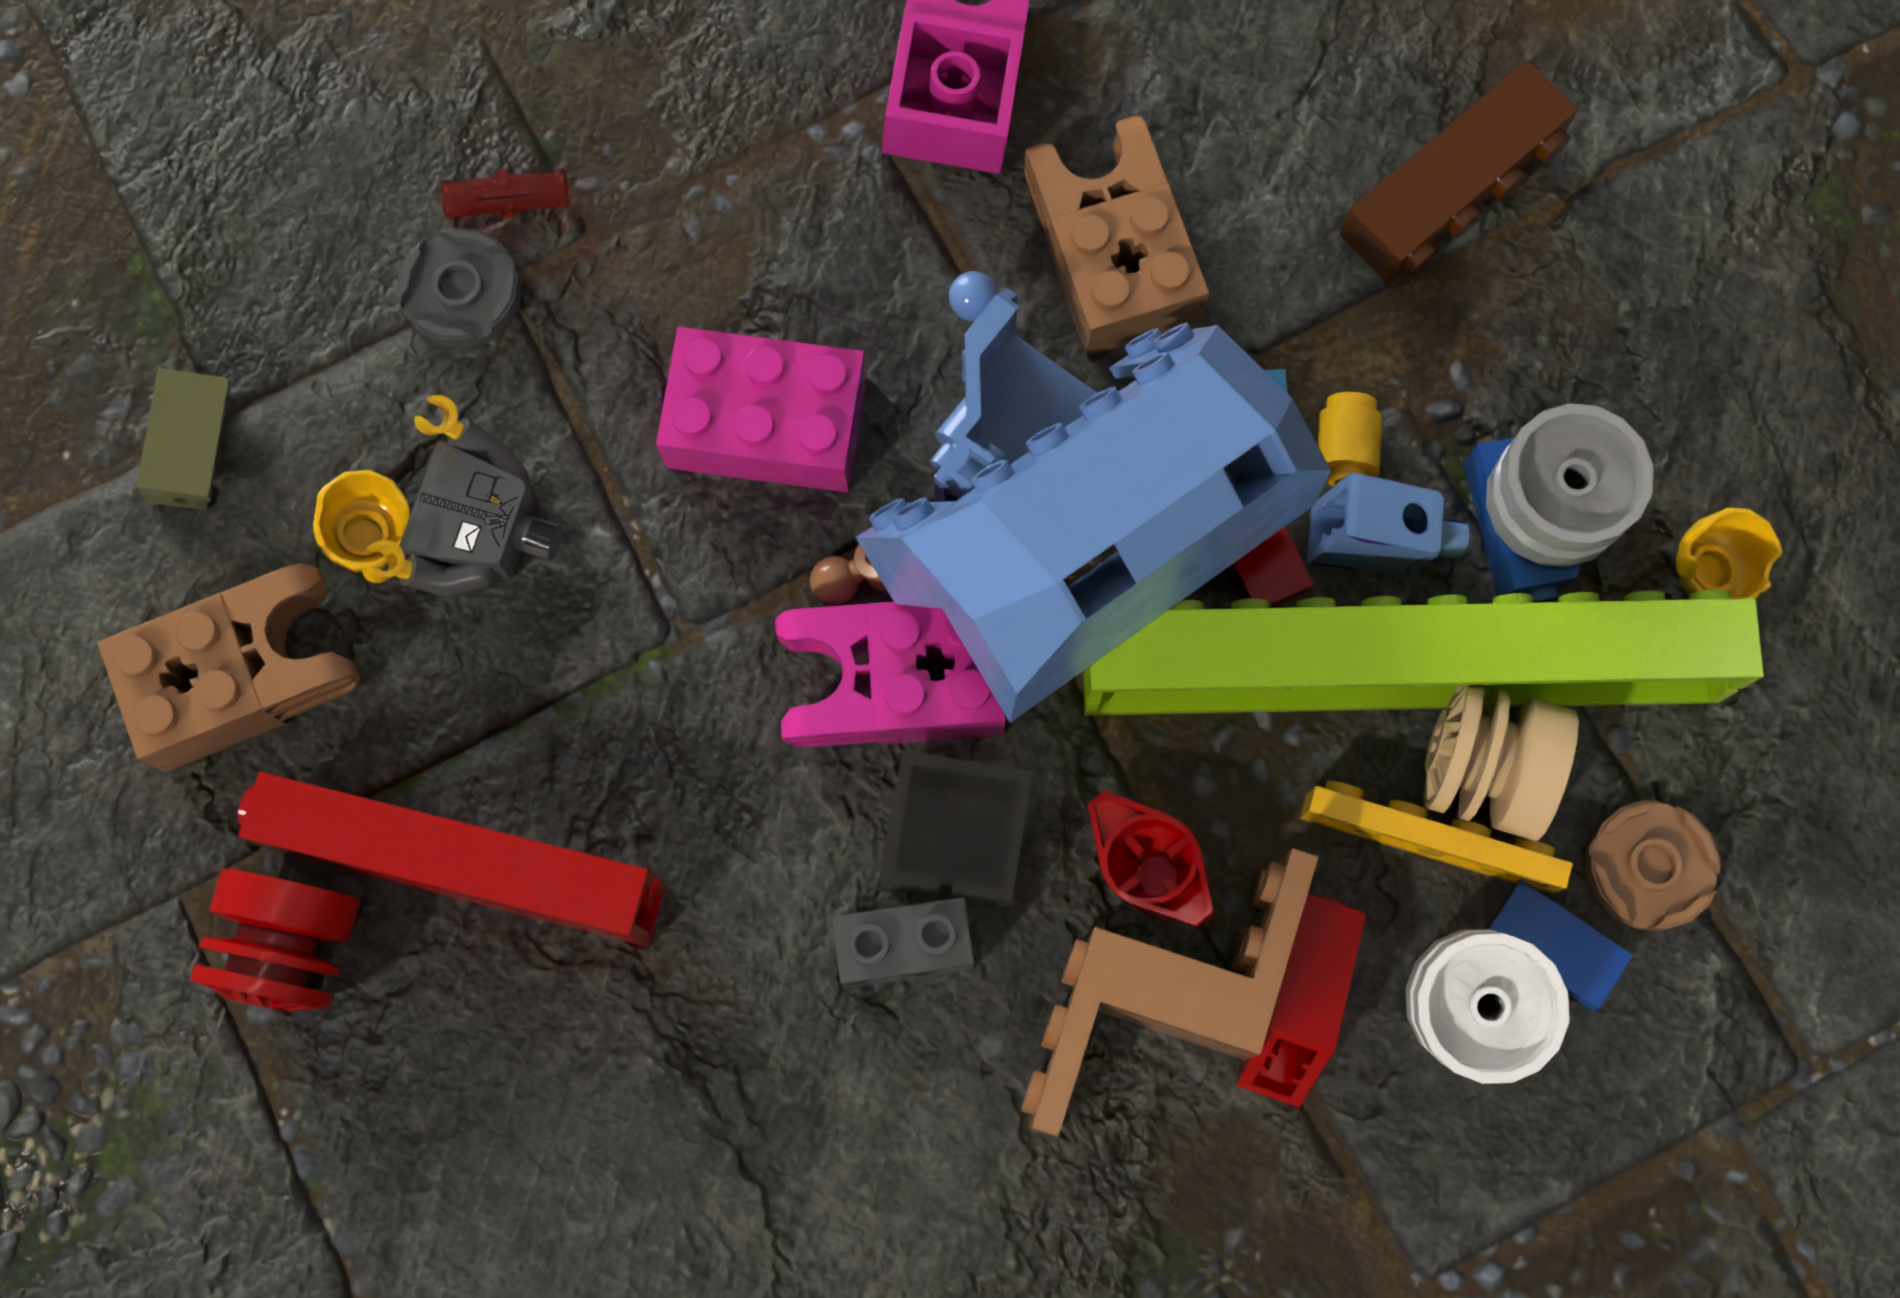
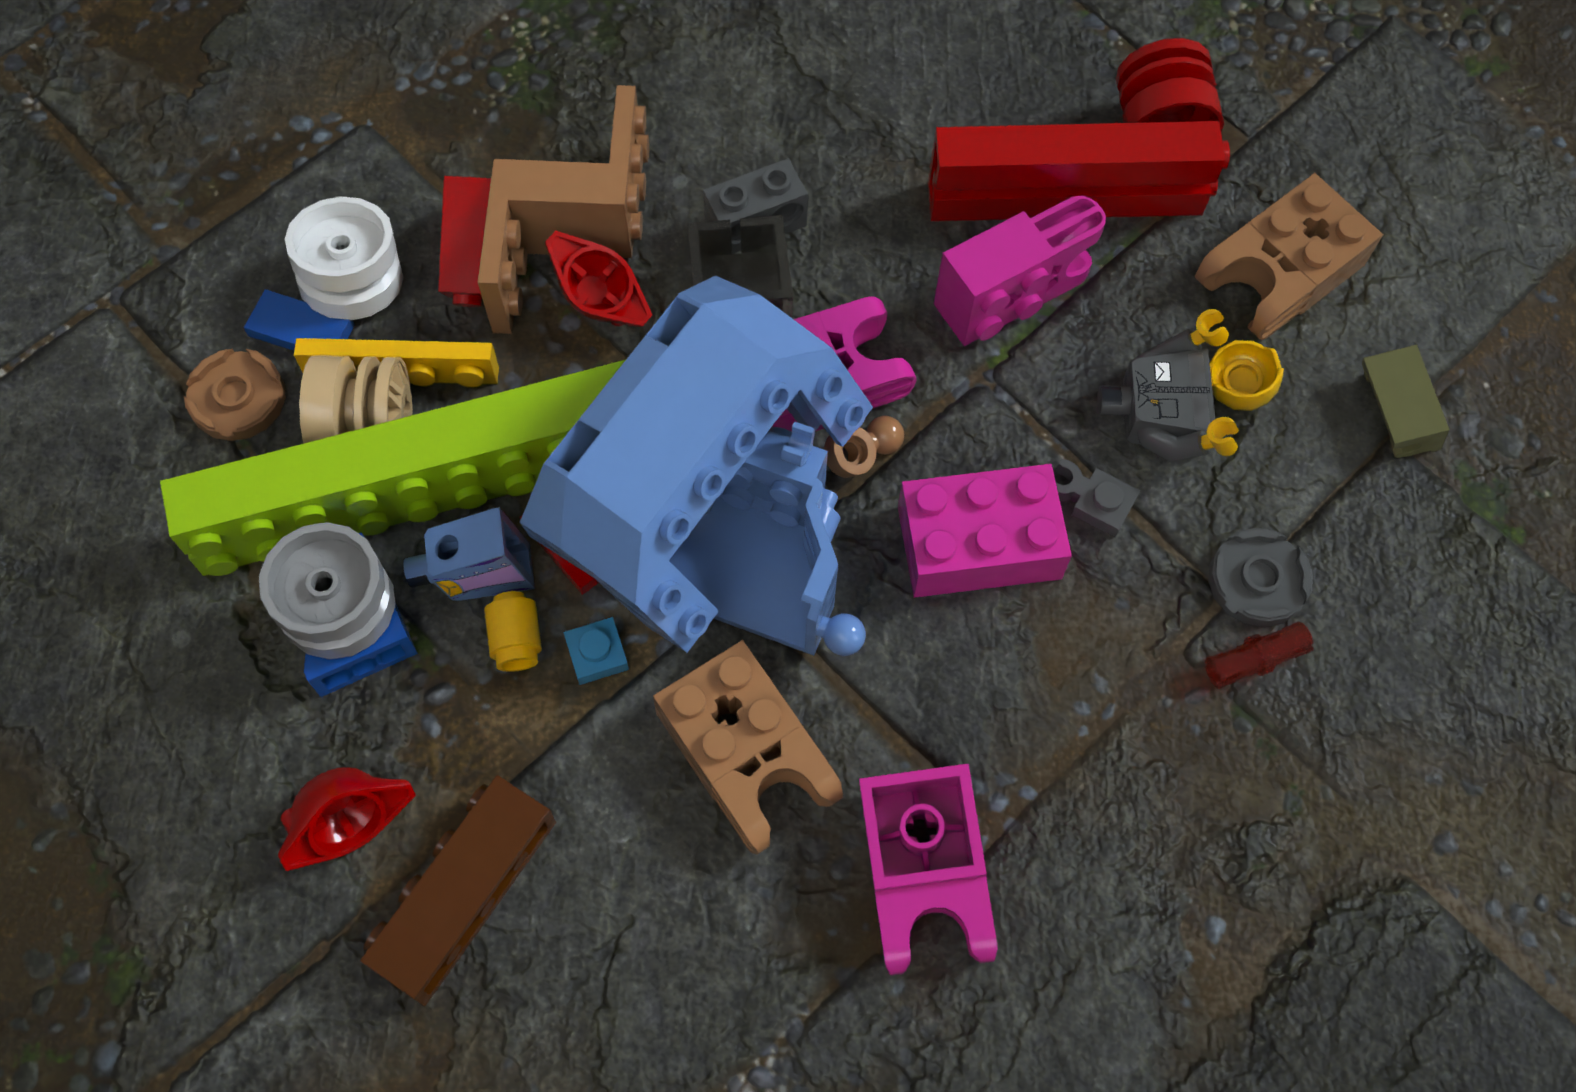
camera: 160 degrees right, 10 degrees down
(586, 729) = (1016, 267): none -> dark pink brick
(606, 429) = (1099, 500): none -> dark grey plate
(1586, 288) = (339, 815): none -> red hat
(1728, 553) = (195, 611): yellow hair -> none

